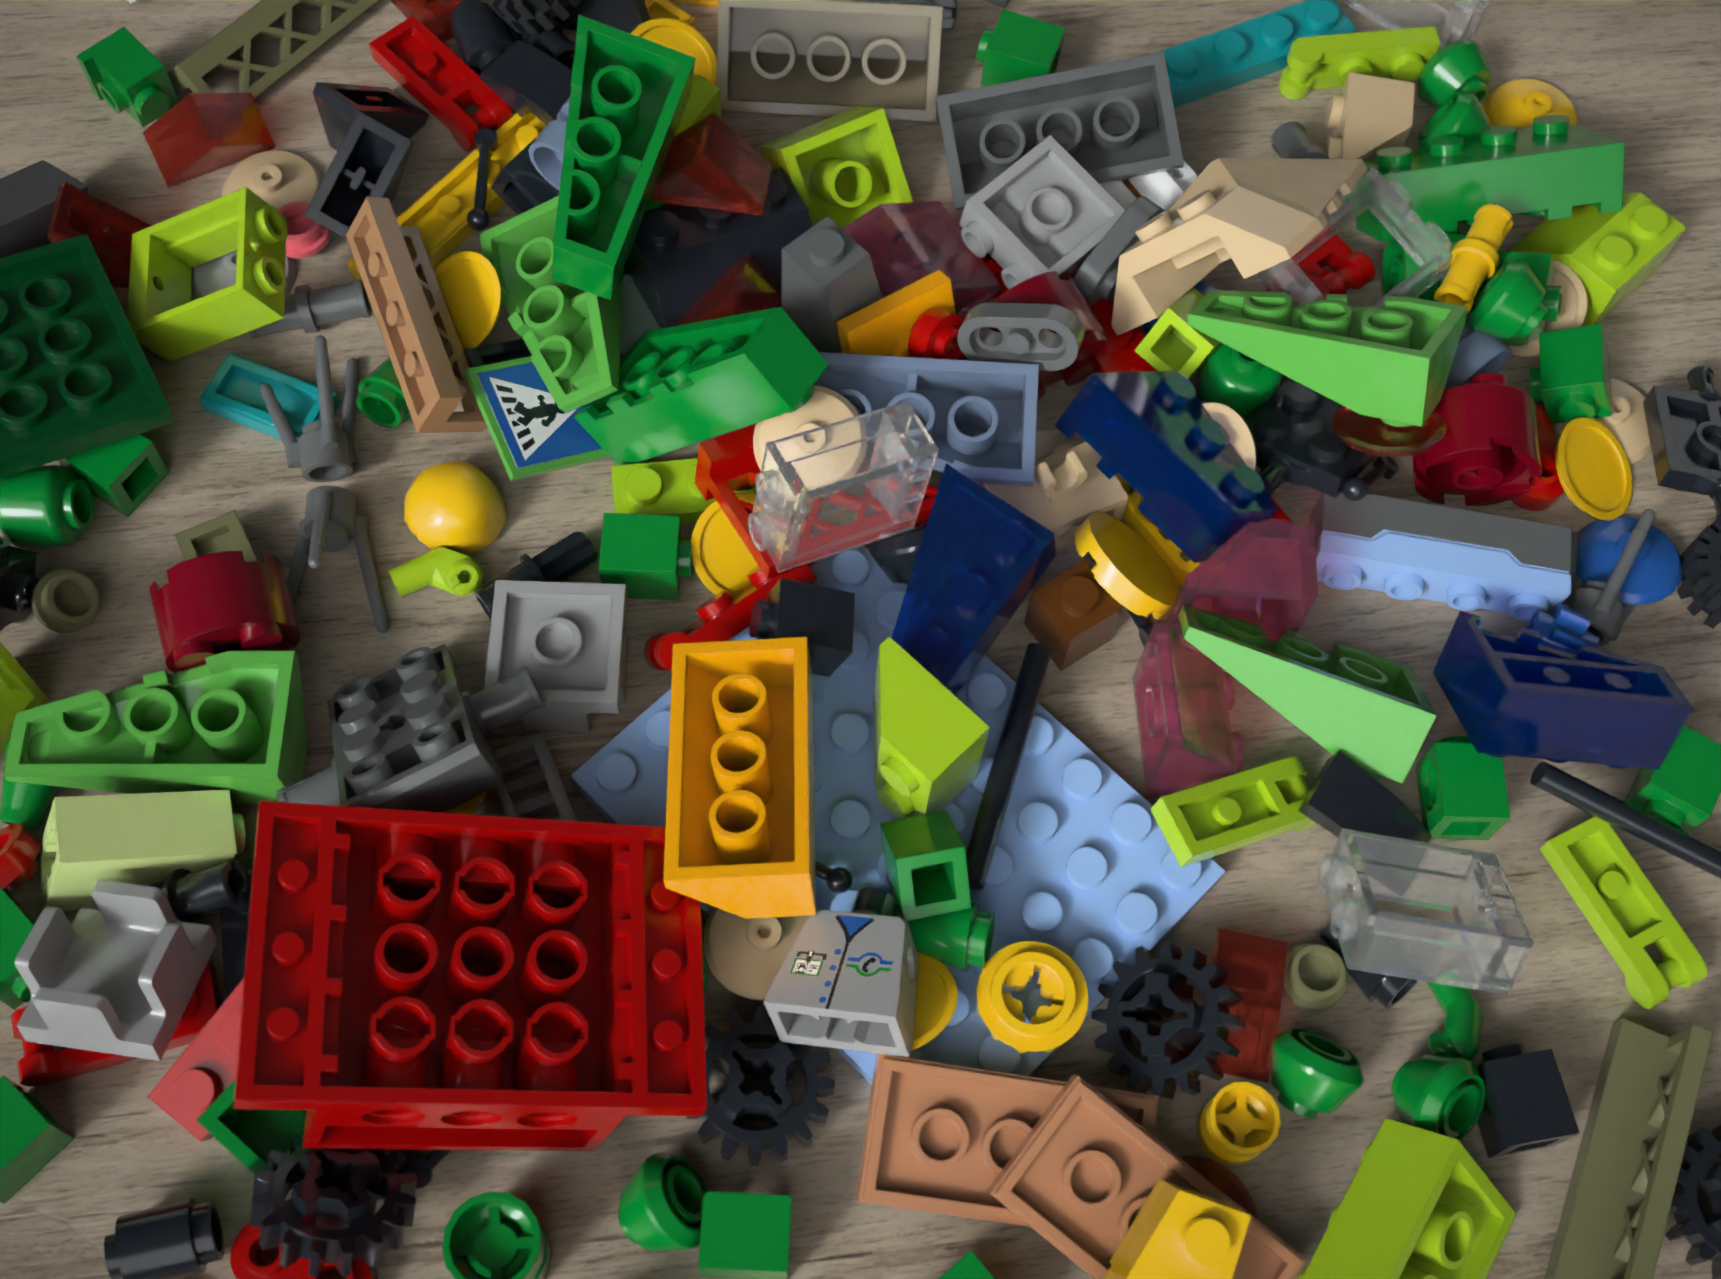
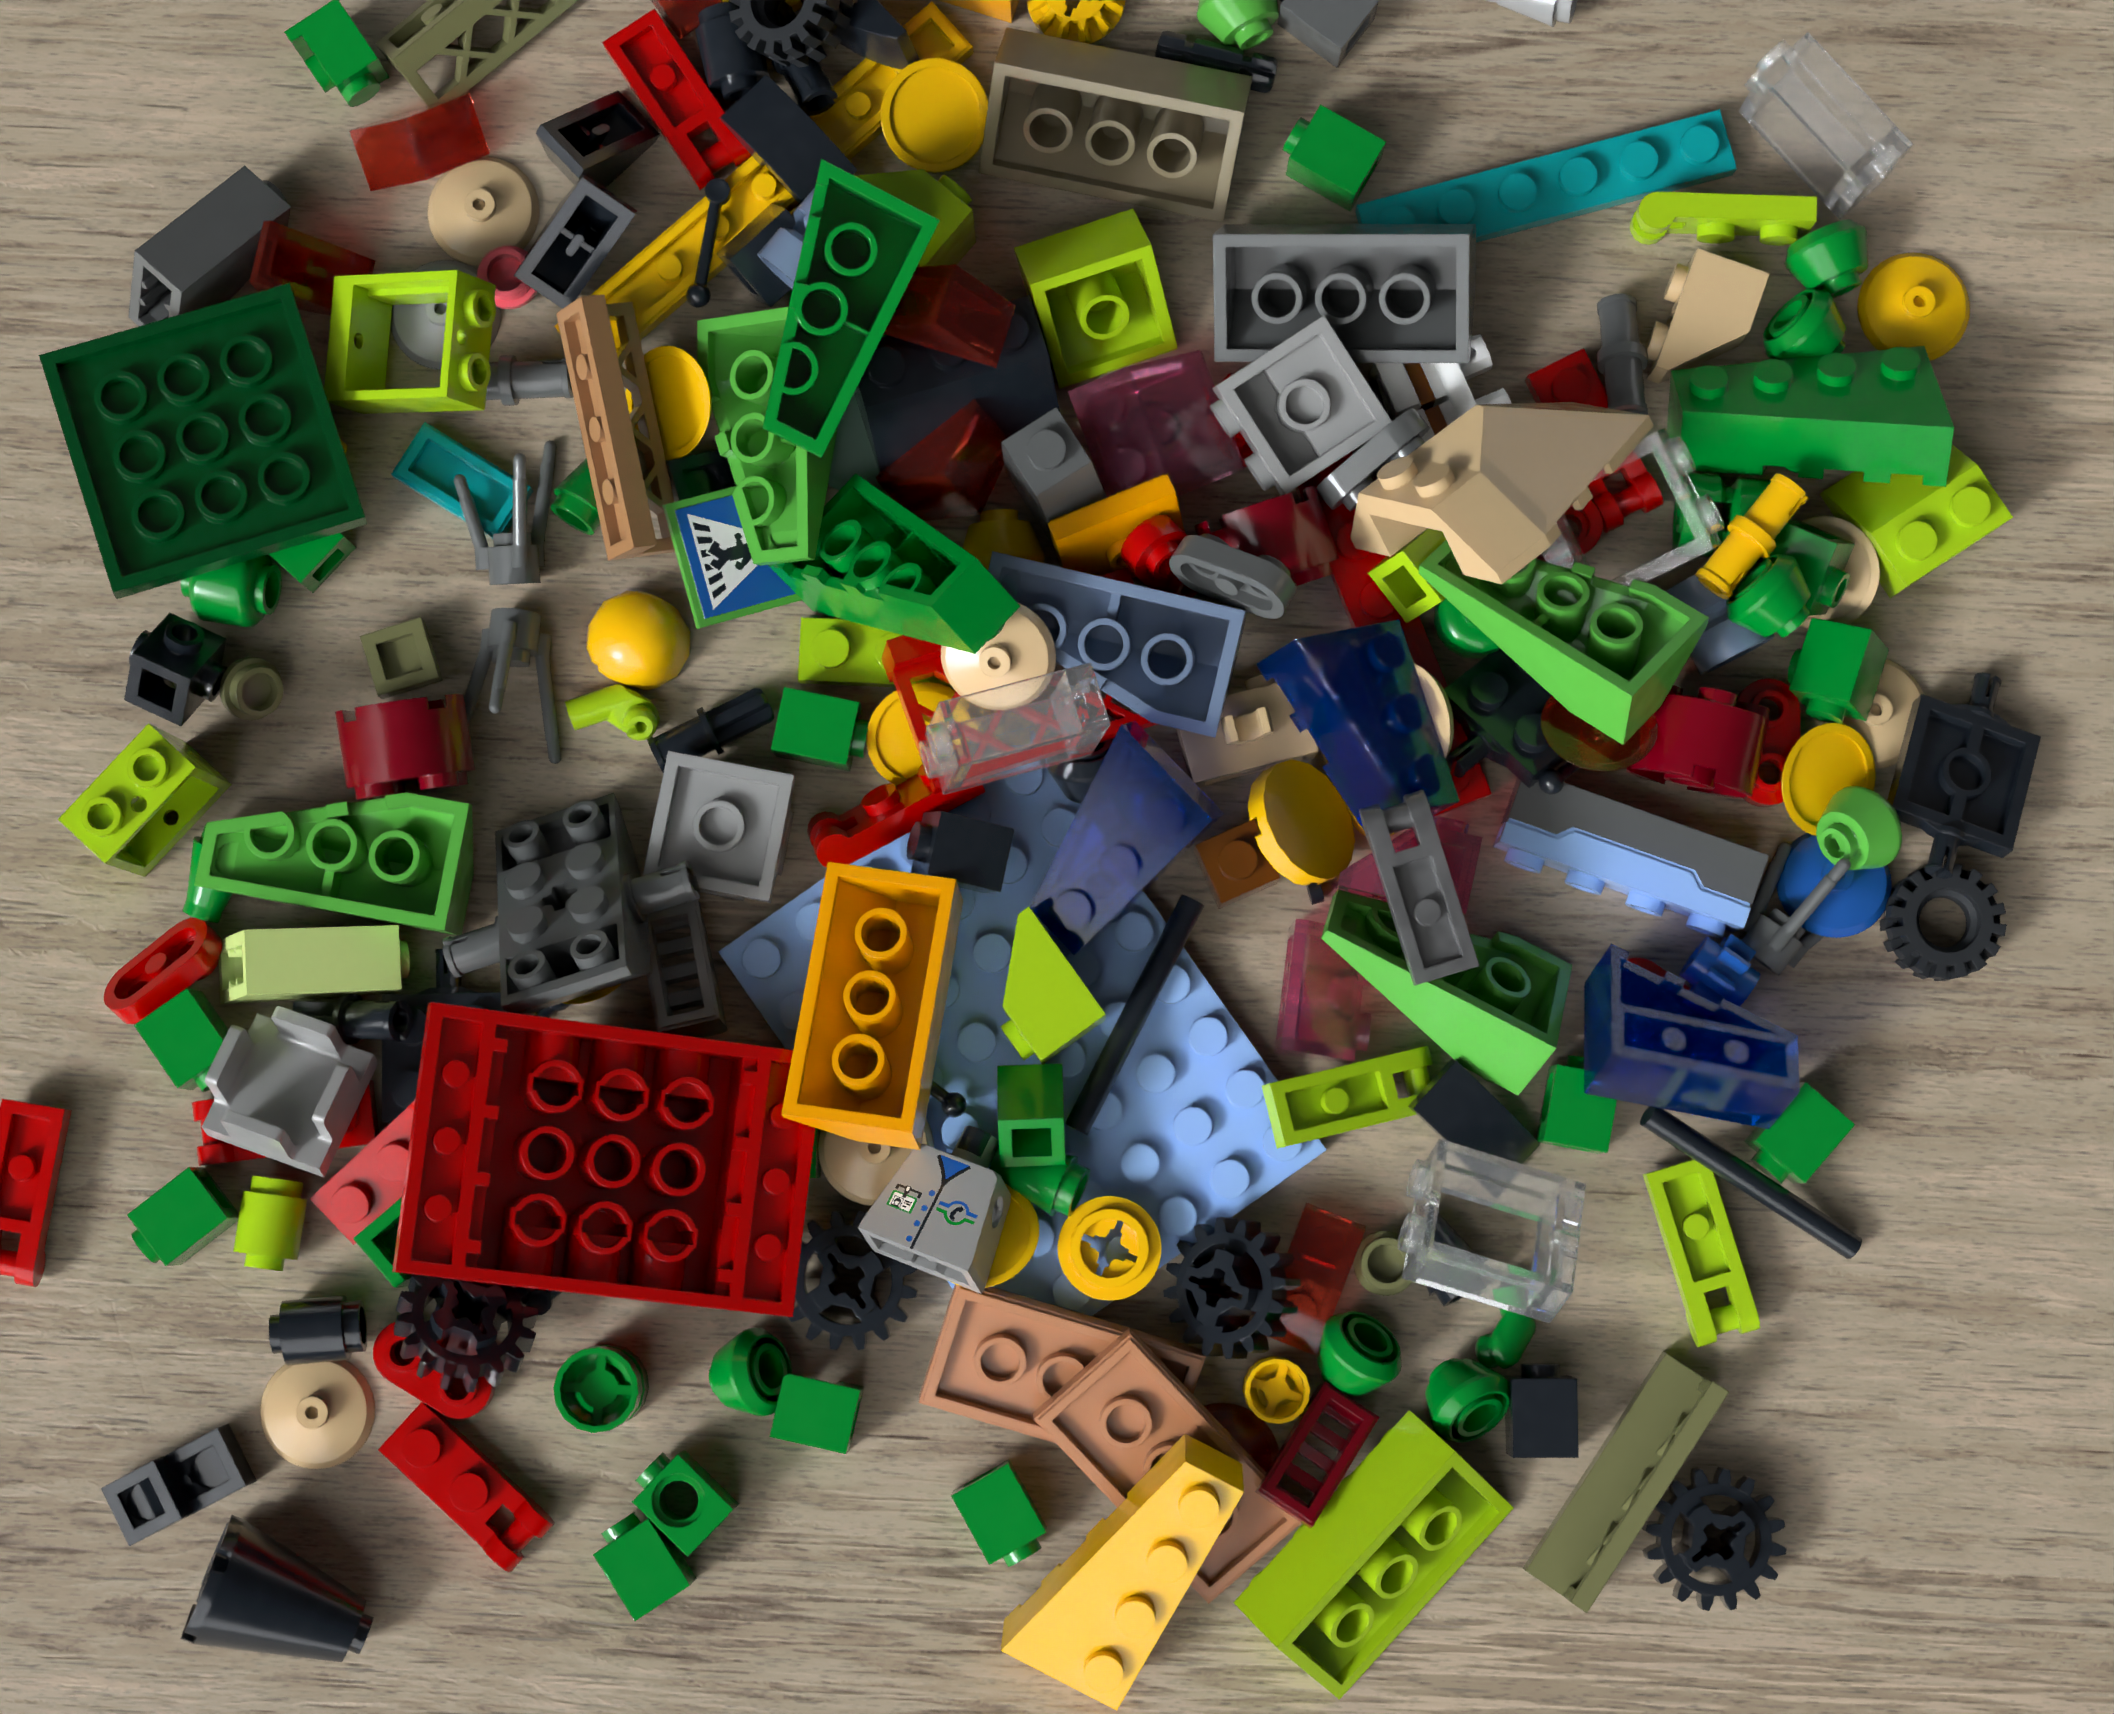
camera: 20 degrees right, 20 degrees up
(103, 1131) = (270, 1222): none -> lime brick
(1272, 572) = (1419, 890): none -> flat silver plate
(1318, 1137) = (1344, 1411): none -> dark red slope
(1645, 484) = (1860, 828): none -> bright green cone

